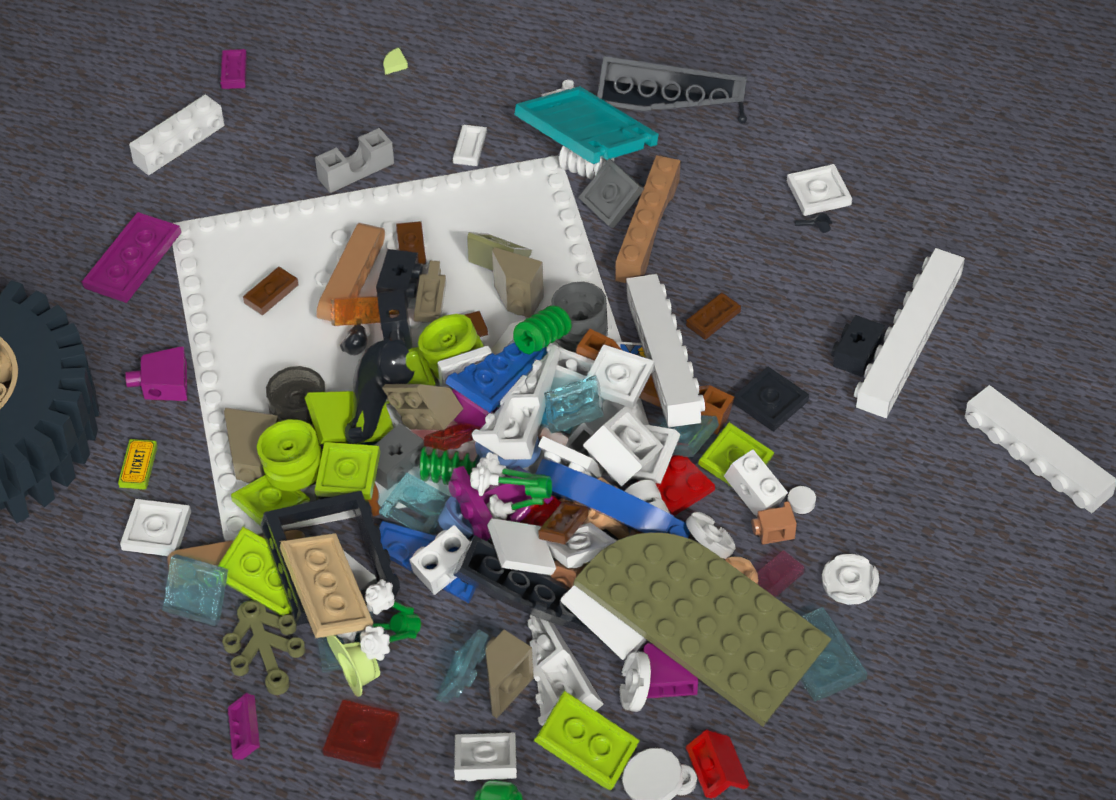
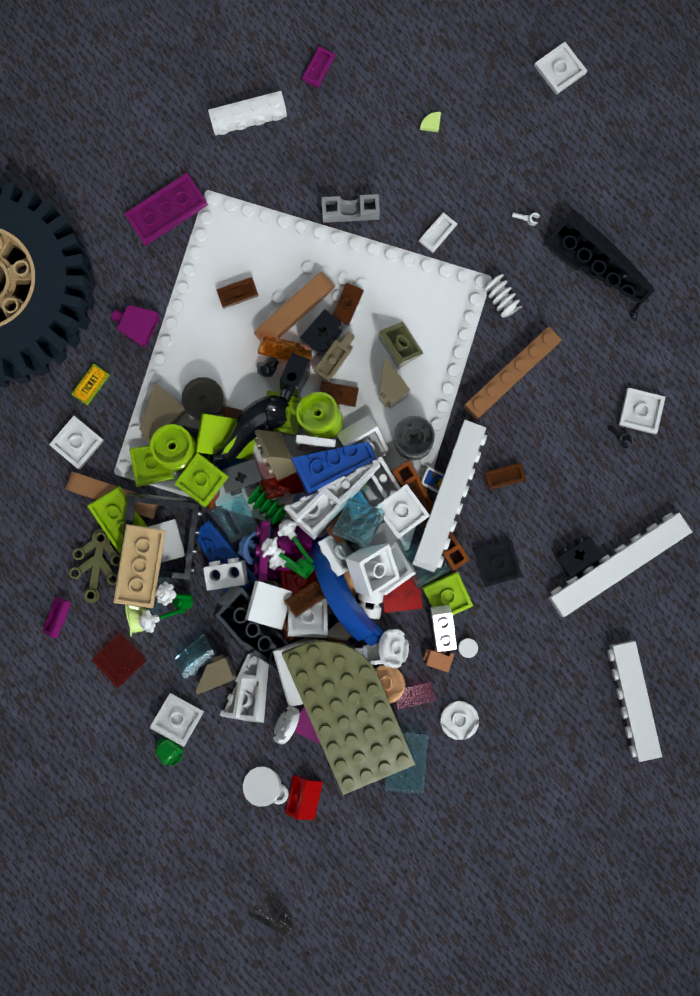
camera: 30 degrees right, 35 degrees up
(195, 589) = (73, 508): clear light blue plate -> none
(542, 329) = (376, 446): green piece -> none
(586, 124) = (519, 268): teal door -> none
(586, 740) = (238, 743): lime tile -> none
(611, 193) = (501, 338): dark grey plate -> none

